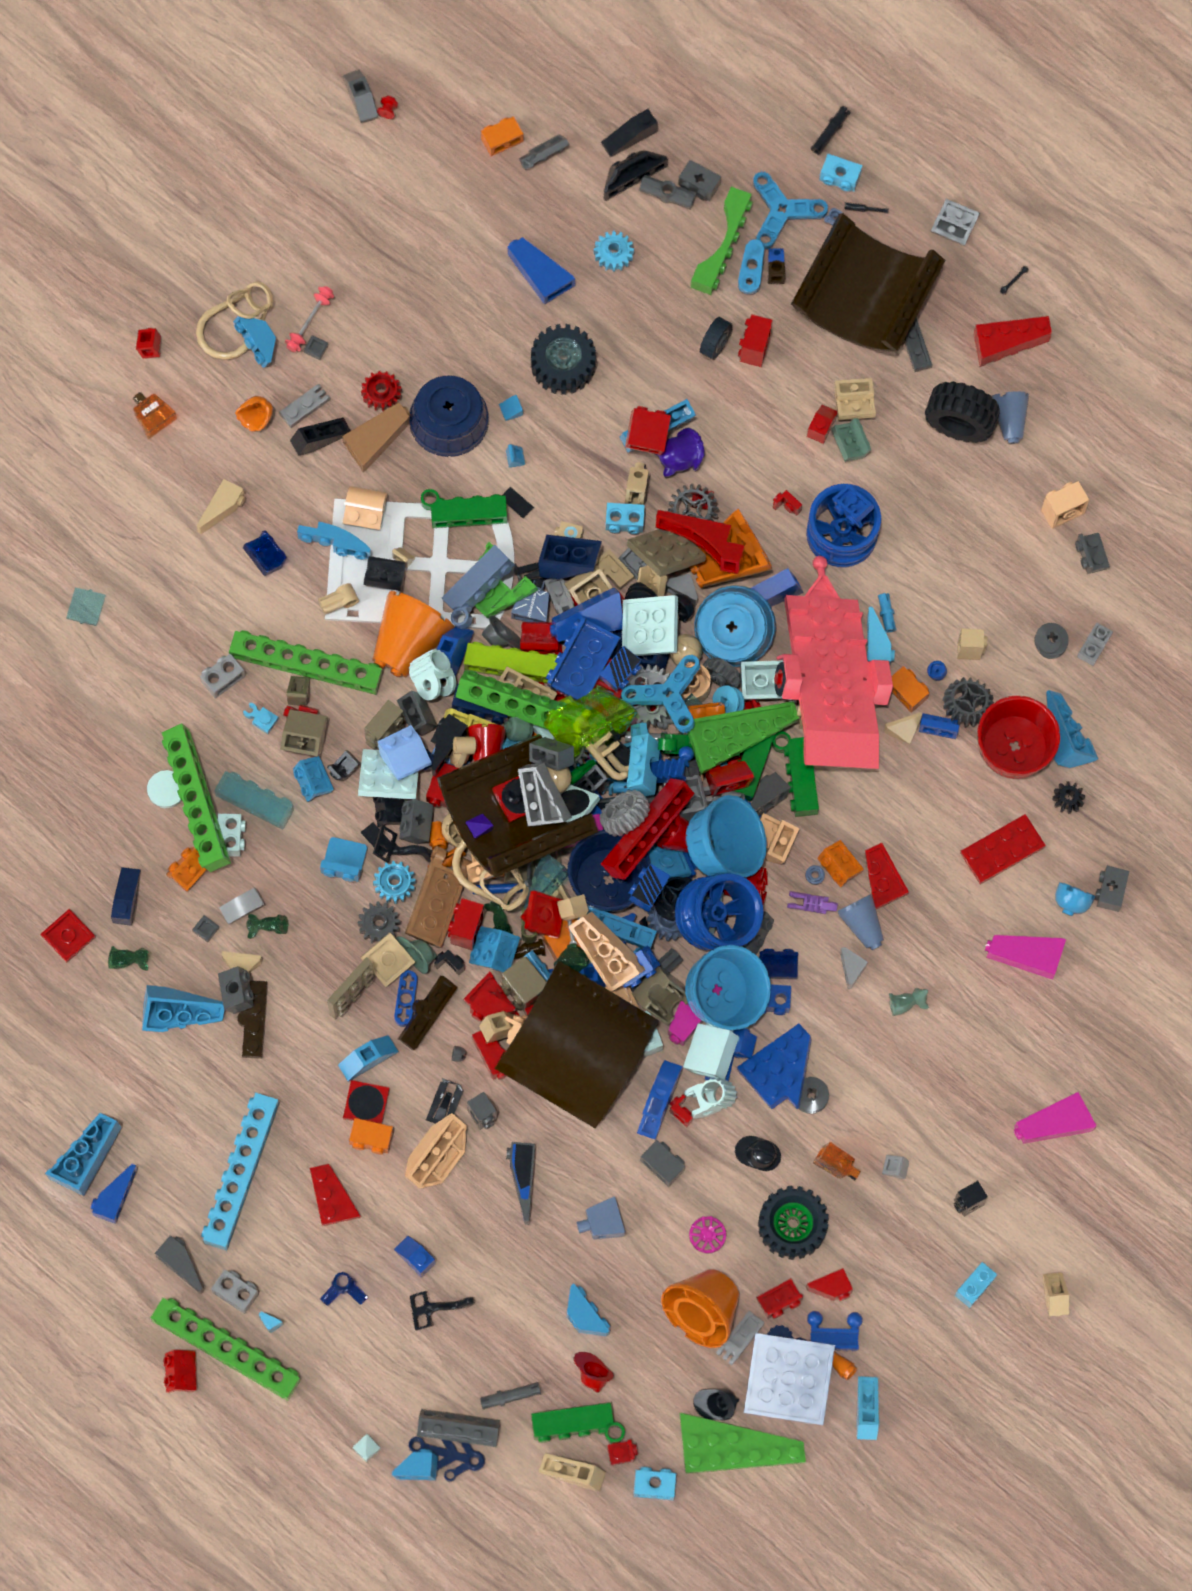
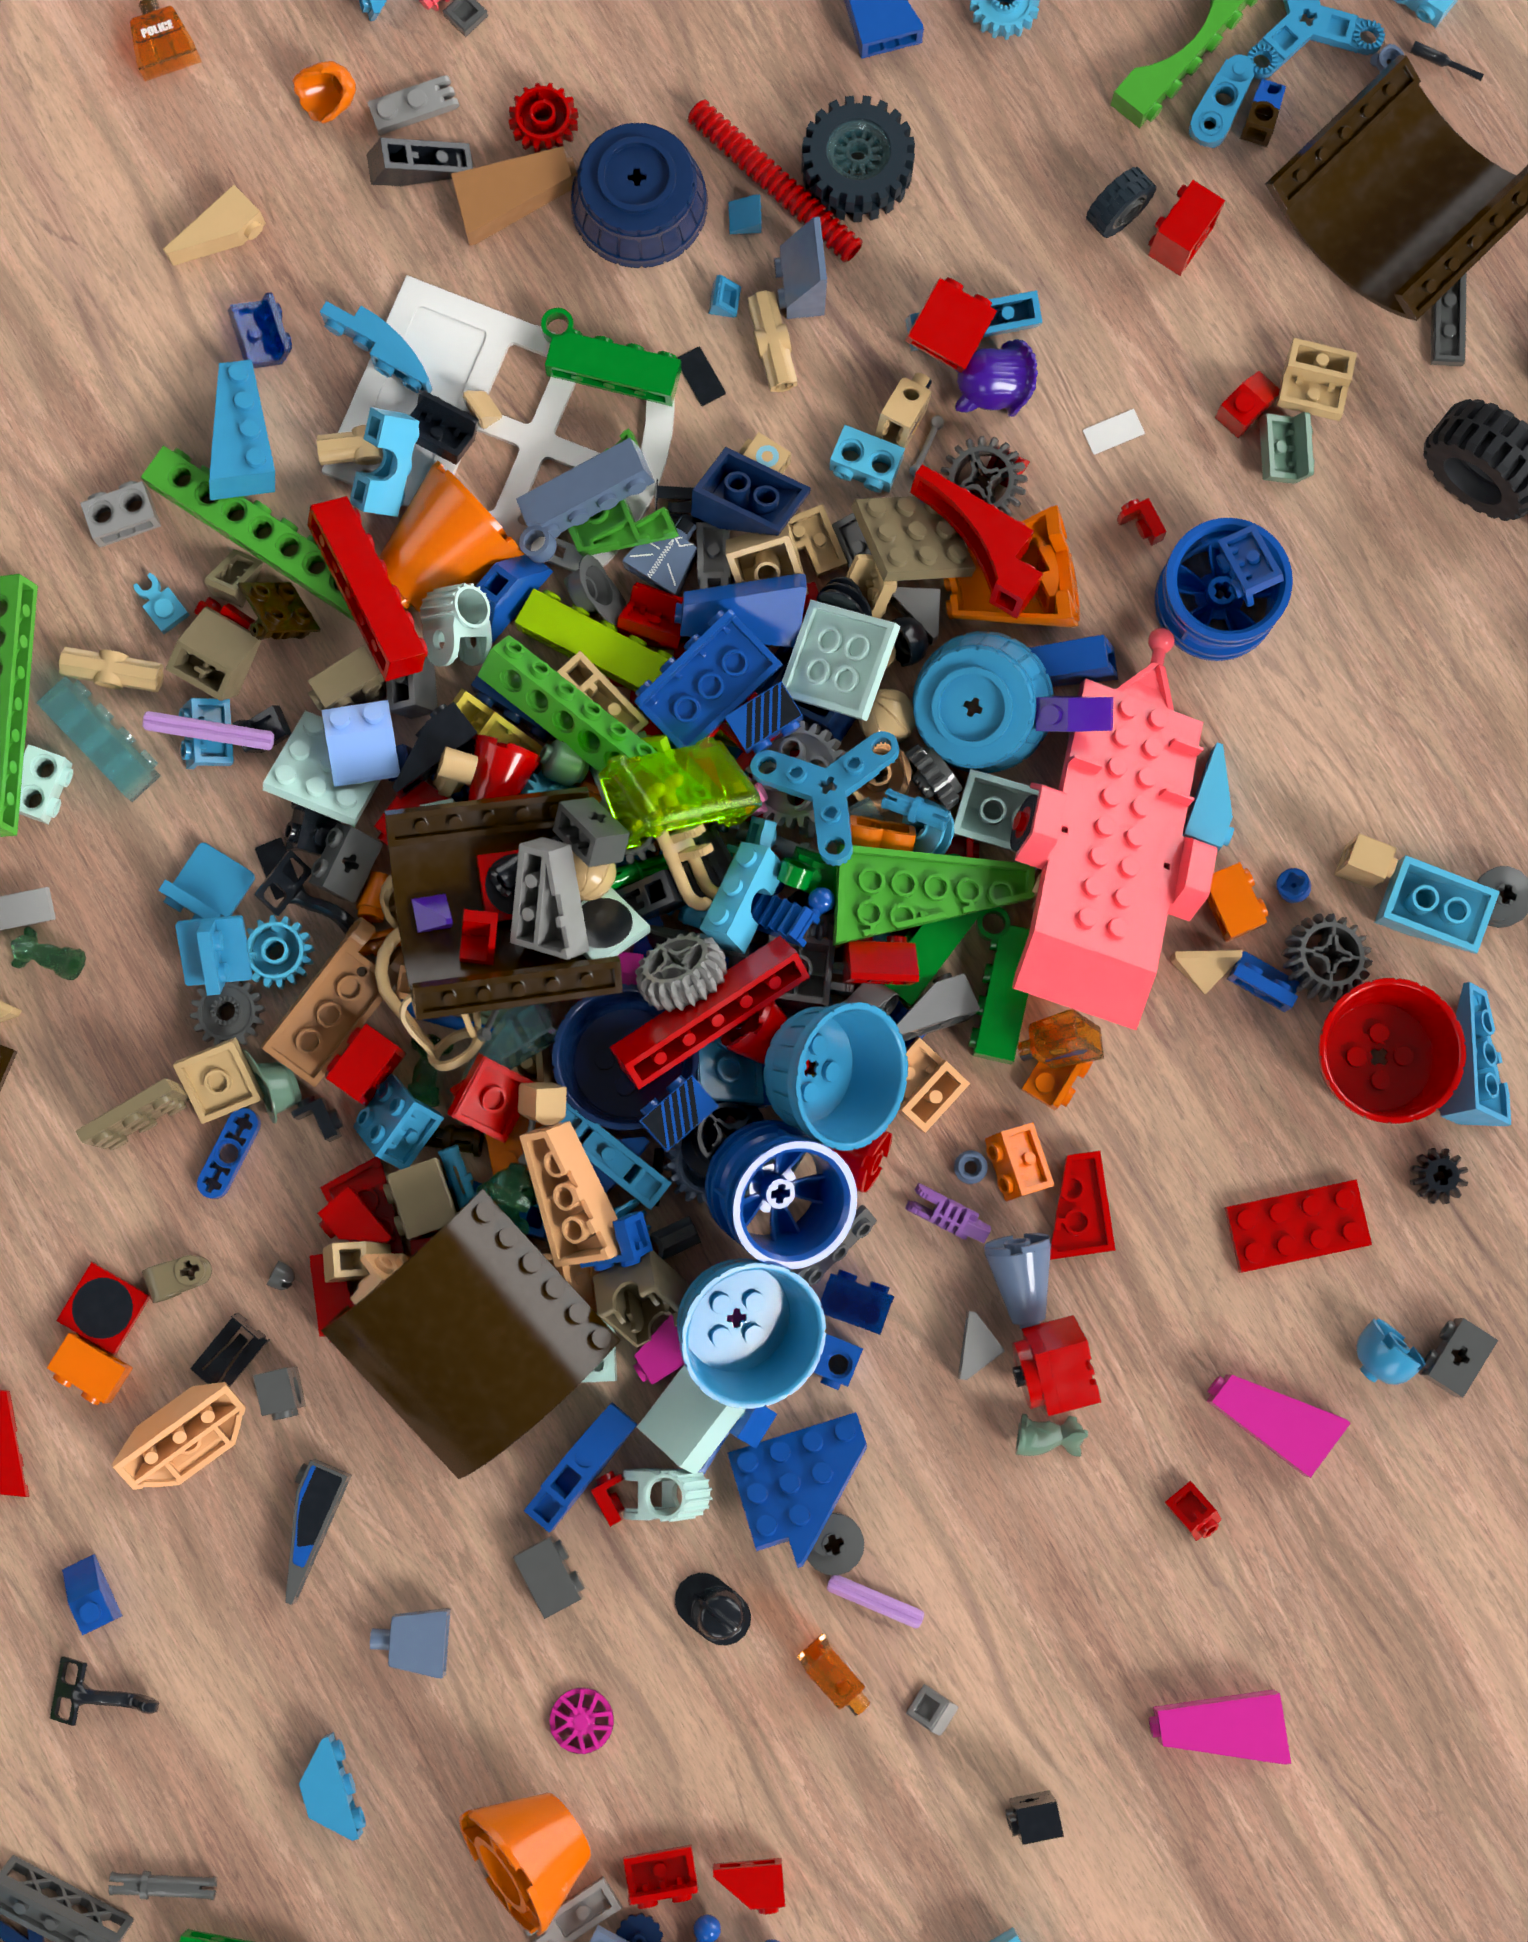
camera: 20 degrees right, 10 degrees up
(247, 760) = (111, 669): none -> tan piece
(277, 612) = (240, 441): none -> dark azure wedge
(317, 773) = (208, 730): none -> lavender axle
(333, 700) = (278, 610): none -> dark brown hinge
(362, 889) = (214, 952): none -> dark azure bracket
(364, 507) = (447, 305): light nougat brick -> none
(366, 614) = (384, 488): none -> medium azure arch
(367, 1057) = (132, 1233): dark azure slope -> none
(378, 669) = (367, 588): none -> red brick
(398, 1073) = (172, 1277): none -> dark tan piece
(426, 1012) = (252, 1190): dark brown hinge -> none
(509, 828) = (478, 937): none -> red panel
(520, 384) = (772, 178): none -> red piece
(550, 471) = (772, 341): none -> tan piece
(556, 428) = (802, 272): none -> sand blue slope
(593, 1371) = (310, 1891): red piece -> none
(655, 487) = (936, 424): none -> light grey hinge
(719, 691) = (915, 809): none -> dark azure pin
(754, 461) = (1113, 431): none -> white sticker
(787, 613) = (1074, 713): none -> dark purple slope
(801, 1202) = (726, 1795): black wheel -> none
(841, 788) = (1062, 1040): none -> clear orange torso
(843, 809) = (1054, 1085): none -> orange bracket
(844, 1119) = (875, 1601): none -> lavender axle
(887, 612) = (1244, 760): dark azure pin -> none
(897, 960) = (1055, 1367): none -> red piece
(1000, 1015) = (1194, 1511): none -> red bracket
(1016, 655) = (1436, 905): none -> medium azure slope

